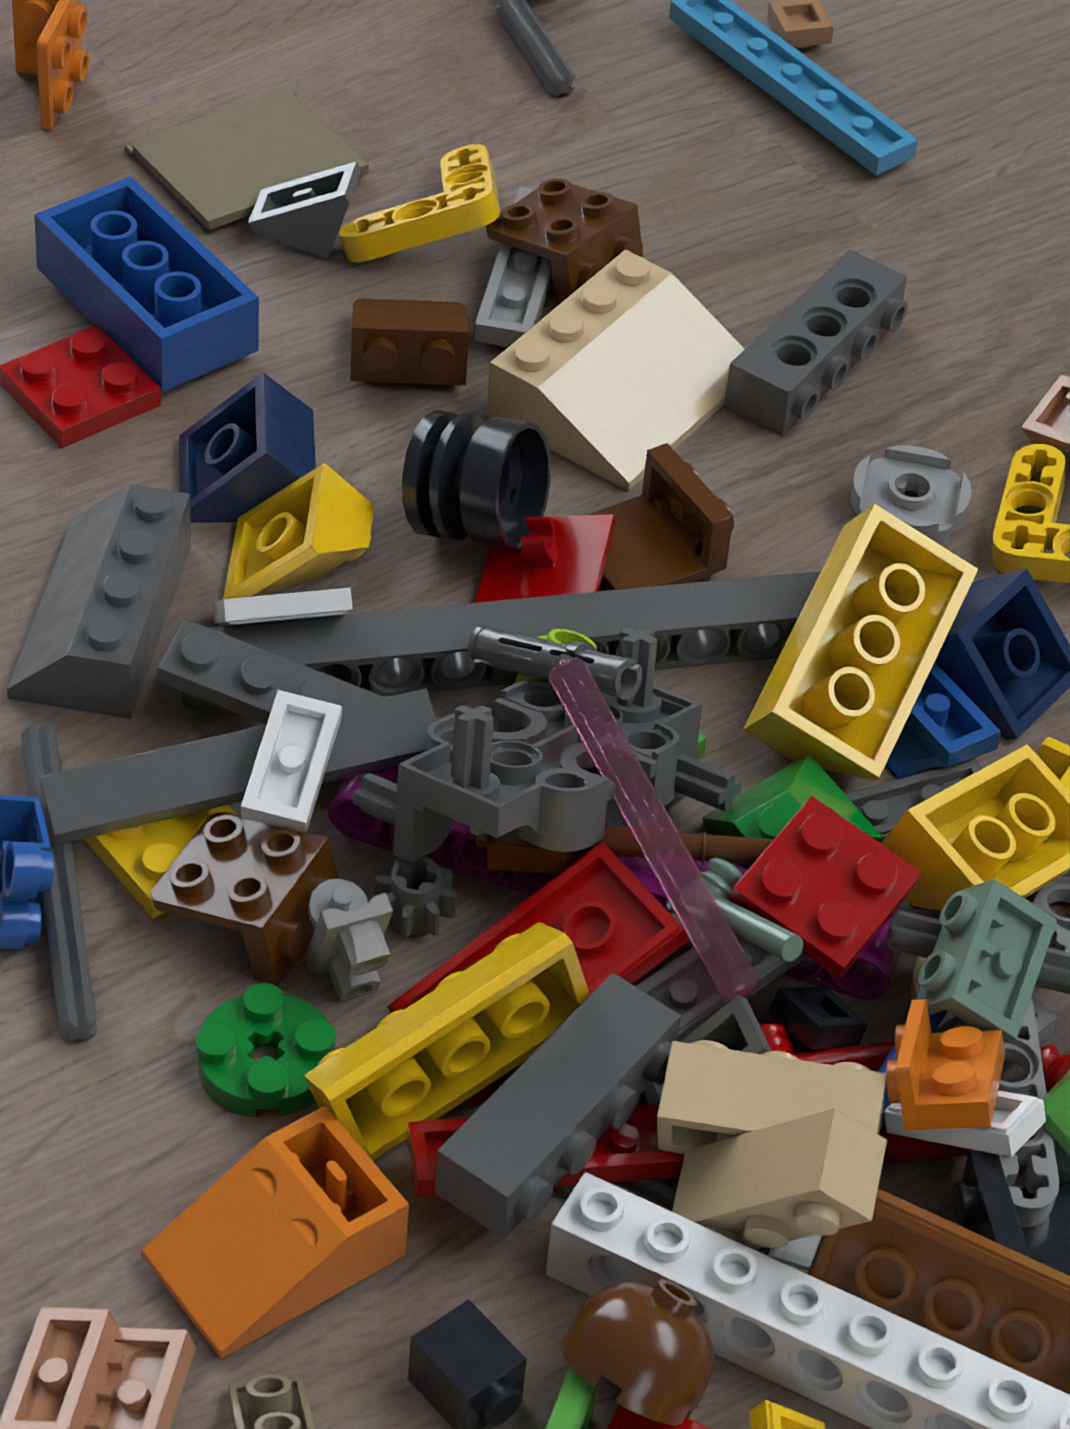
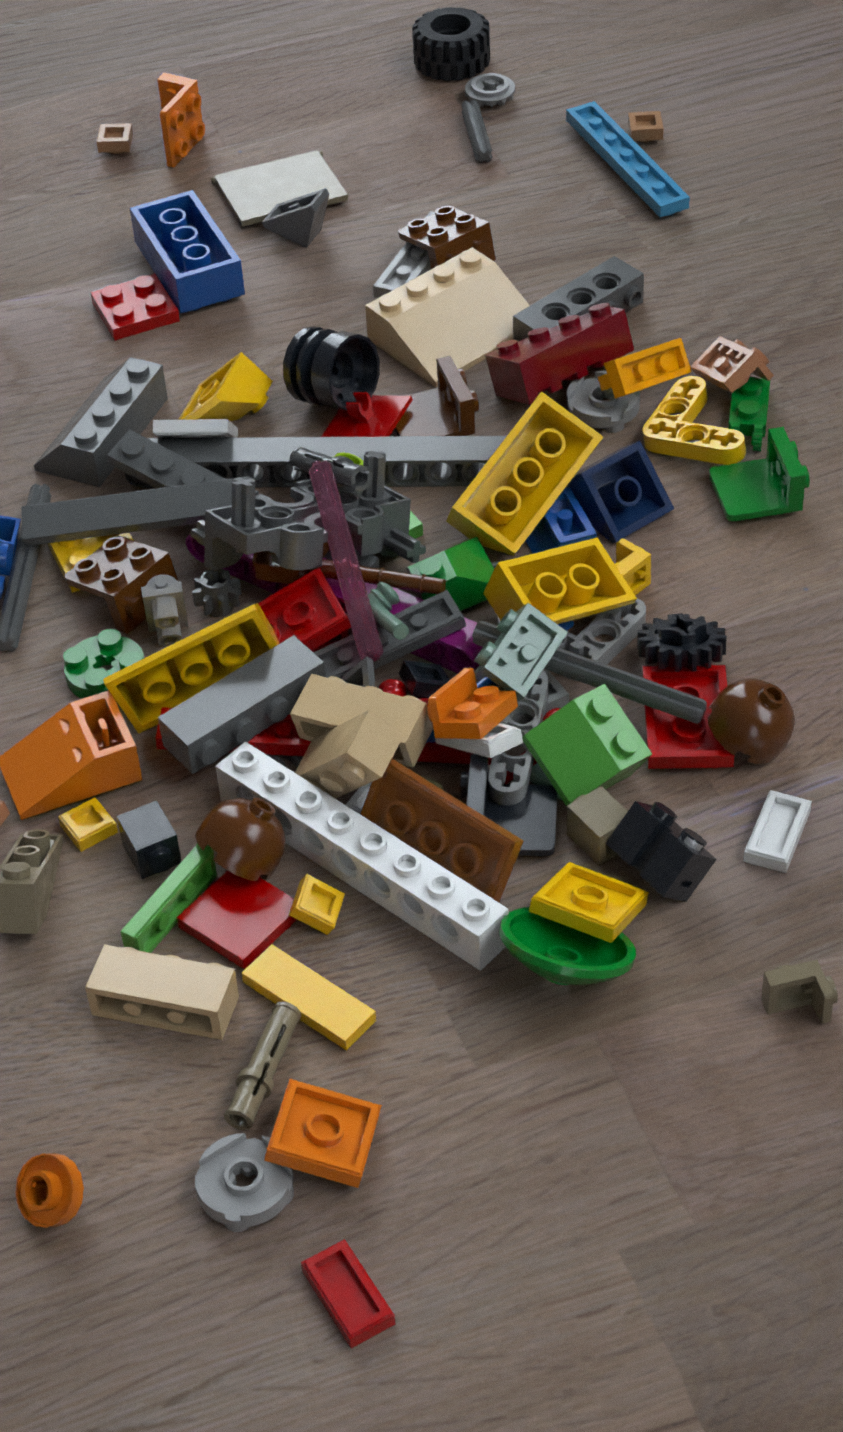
camera: 20 degrees right, 0 degrees up
(245, 451) = (211, 346): dark blue slope -> none
(291, 761) = (158, 508): white plate -> none
(340, 1351) = (88, 824): none -> yellow tile
(409, 342) = (330, 294): reddish brown bracket -> none
(466, 204) = (392, 215): yellow beam -> none
(822, 426) = (559, 353): none -> dark red wedge
(826, 885) = (440, 602): red plate -> none
(968, 440) = (645, 368): none -> light orange hinge

